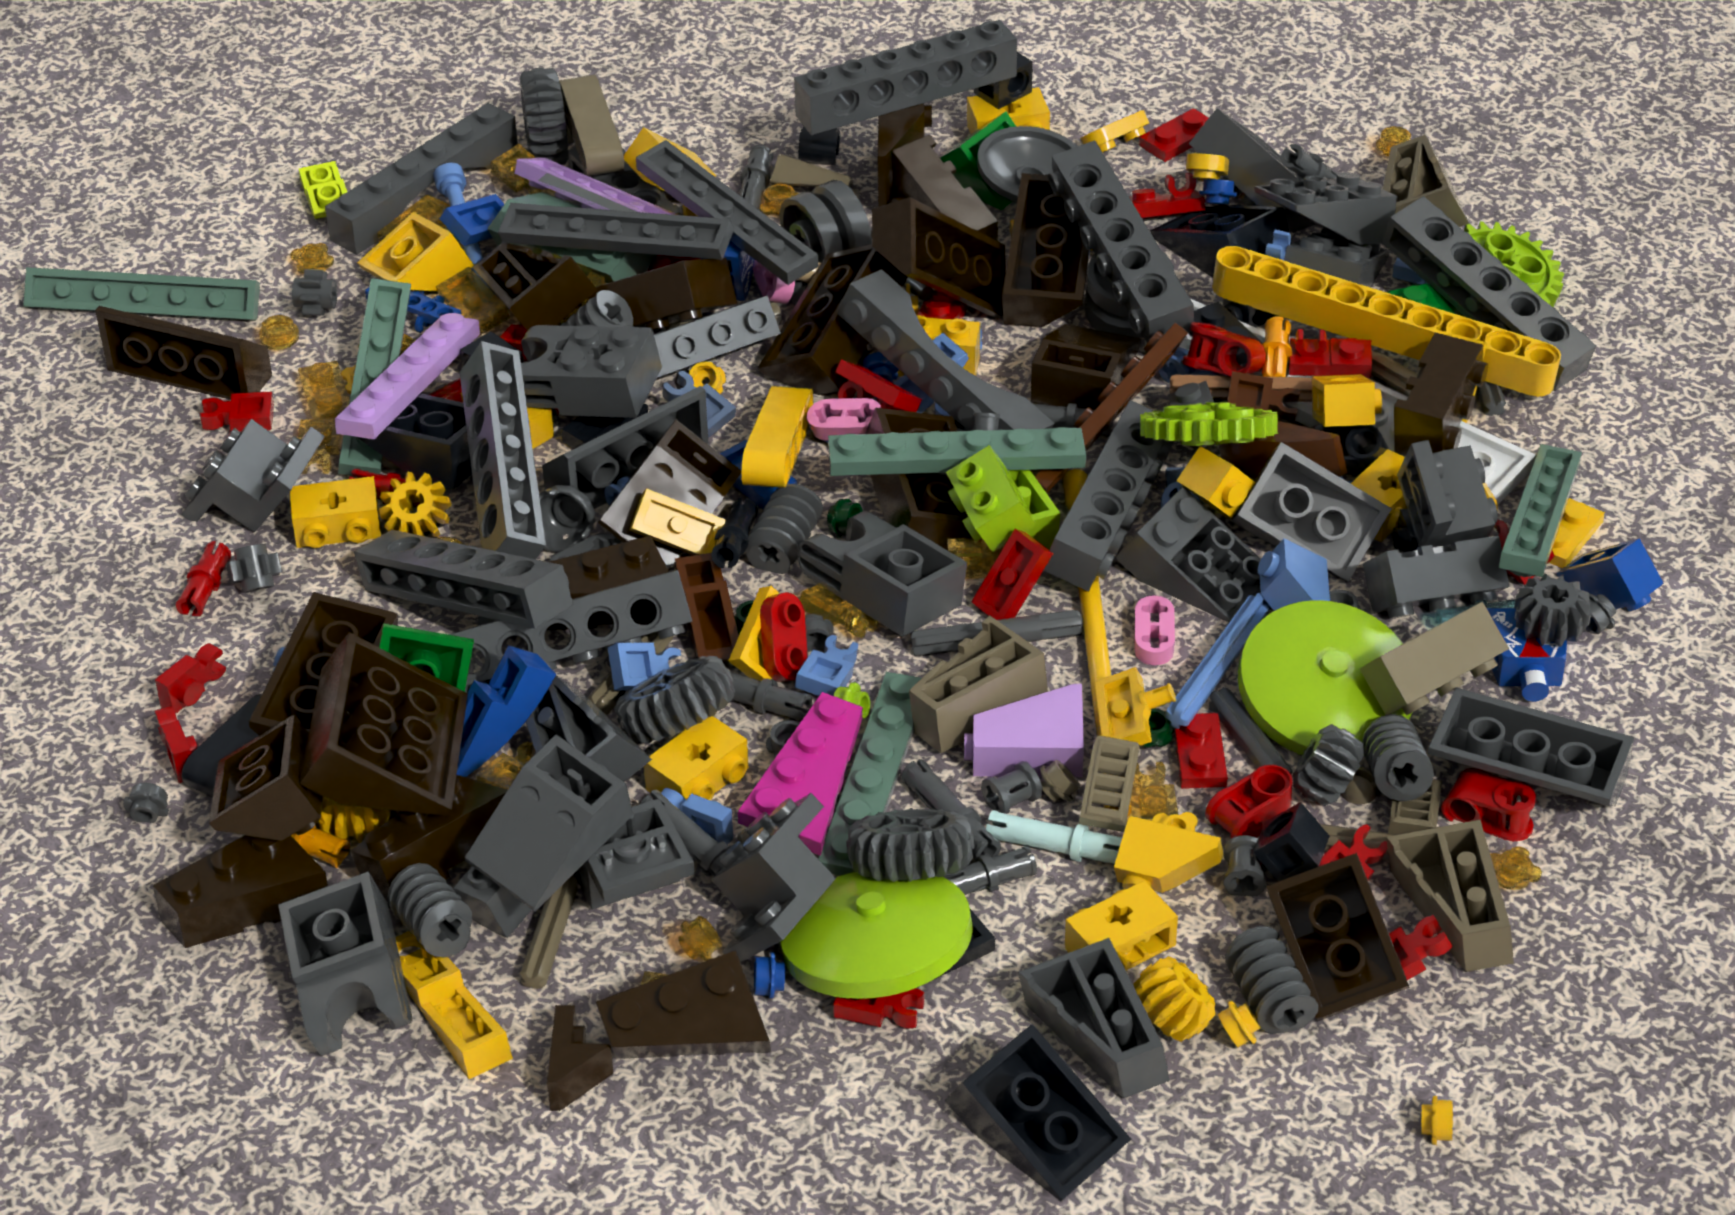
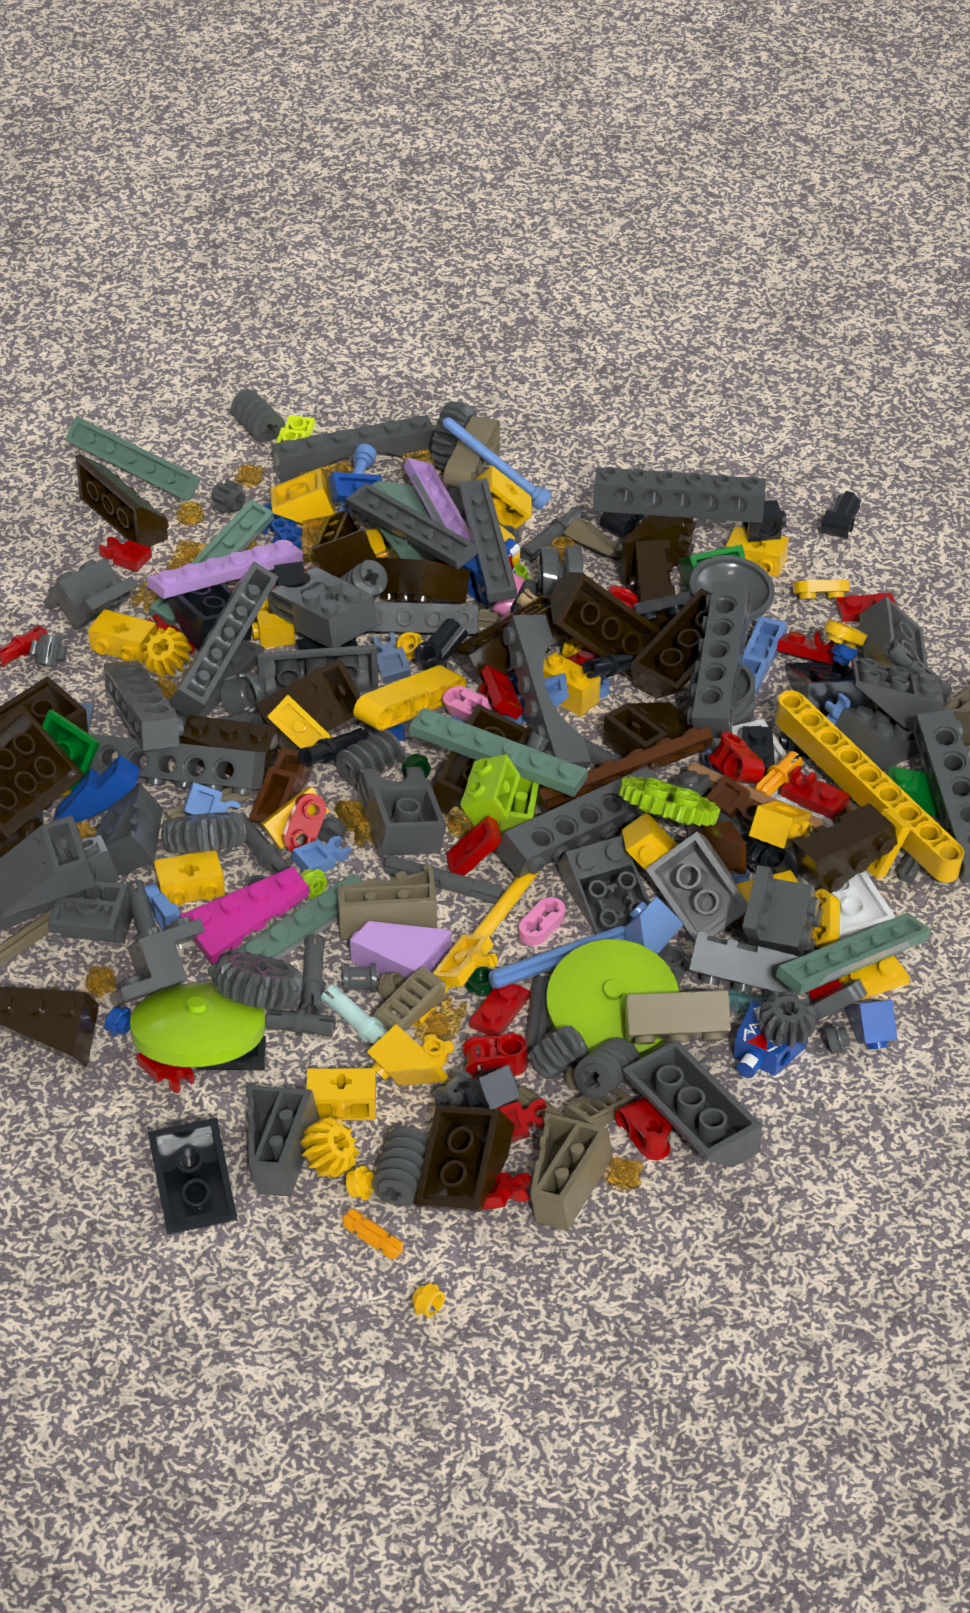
camera: 30 degrees right, 0 degrees up
(262, 184) = (256, 416): none -> dark grey piece
(702, 147) = (539, 495): none -> medium blue piece
(754, 364) = (440, 645): none -> black piece
(980, 305) = (607, 665): none -> black axle
(993, 208) = (669, 604): none -> black plate
(1062, 45) = (841, 517): none -> black piece
(1302, 1076) = (373, 1234): none -> light orange axle
(1570, 558) = (838, 998): none -> dark grey beam

